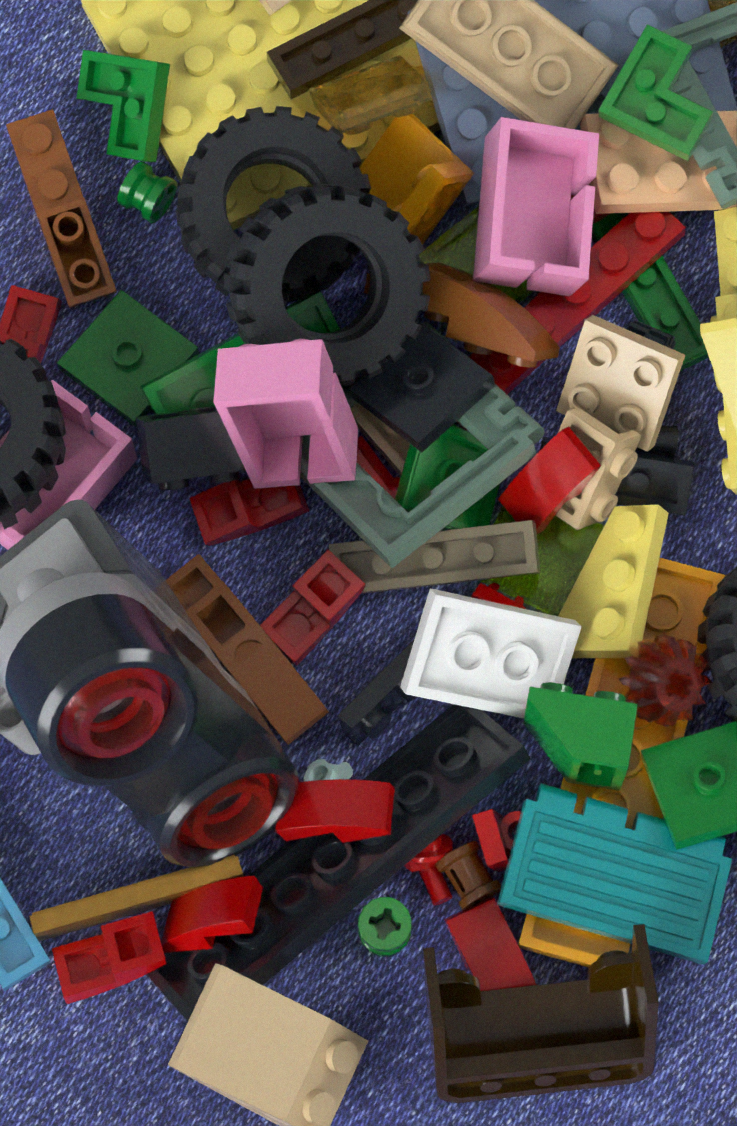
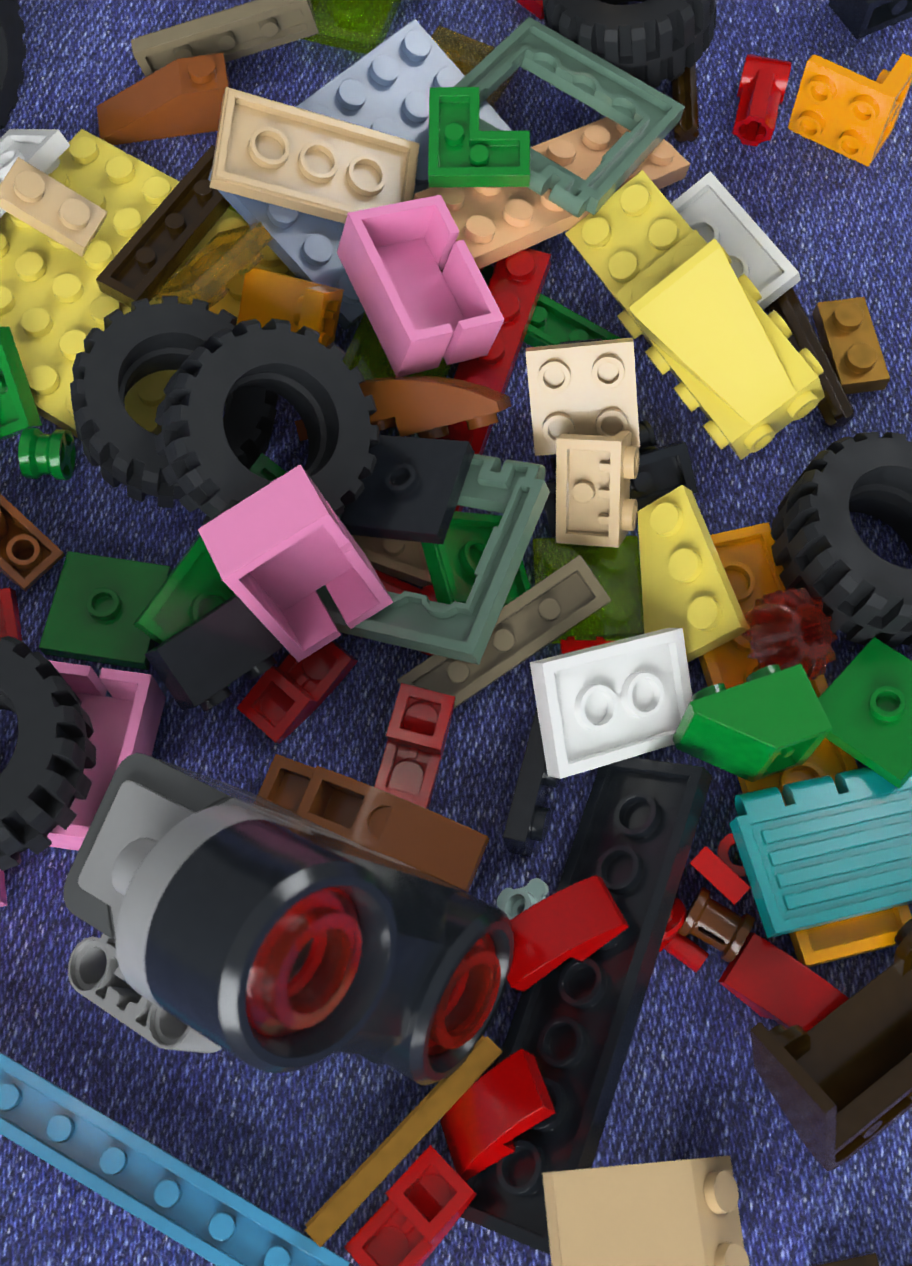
camera: 30 degrees left, 5 degrees down
(382, 937) = (657, 1027): green wheel -> none
(550, 480) = (574, 510): red slope -> none

